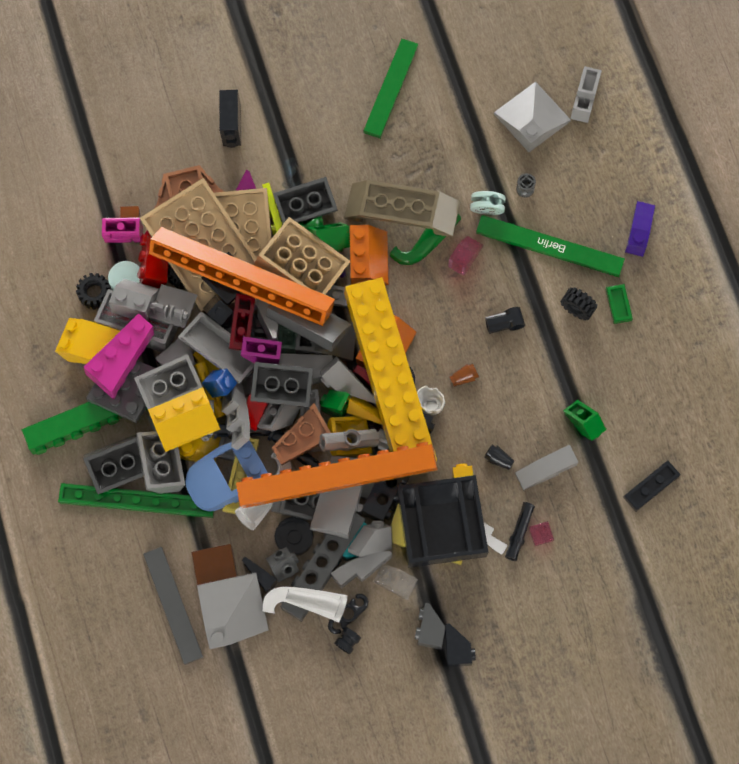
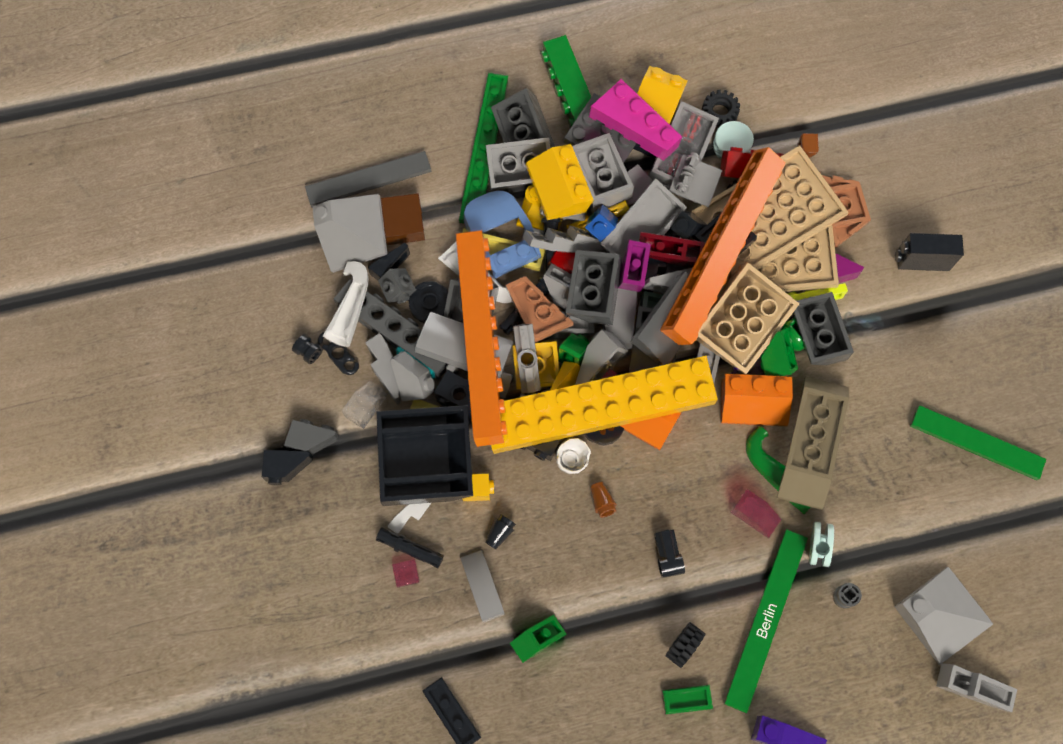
camera: 90 degrees right, 0 degrees up
(121, 230) = (790, 131): dark pink brick -> none
(132, 299) = (705, 137): light grey slope -> none

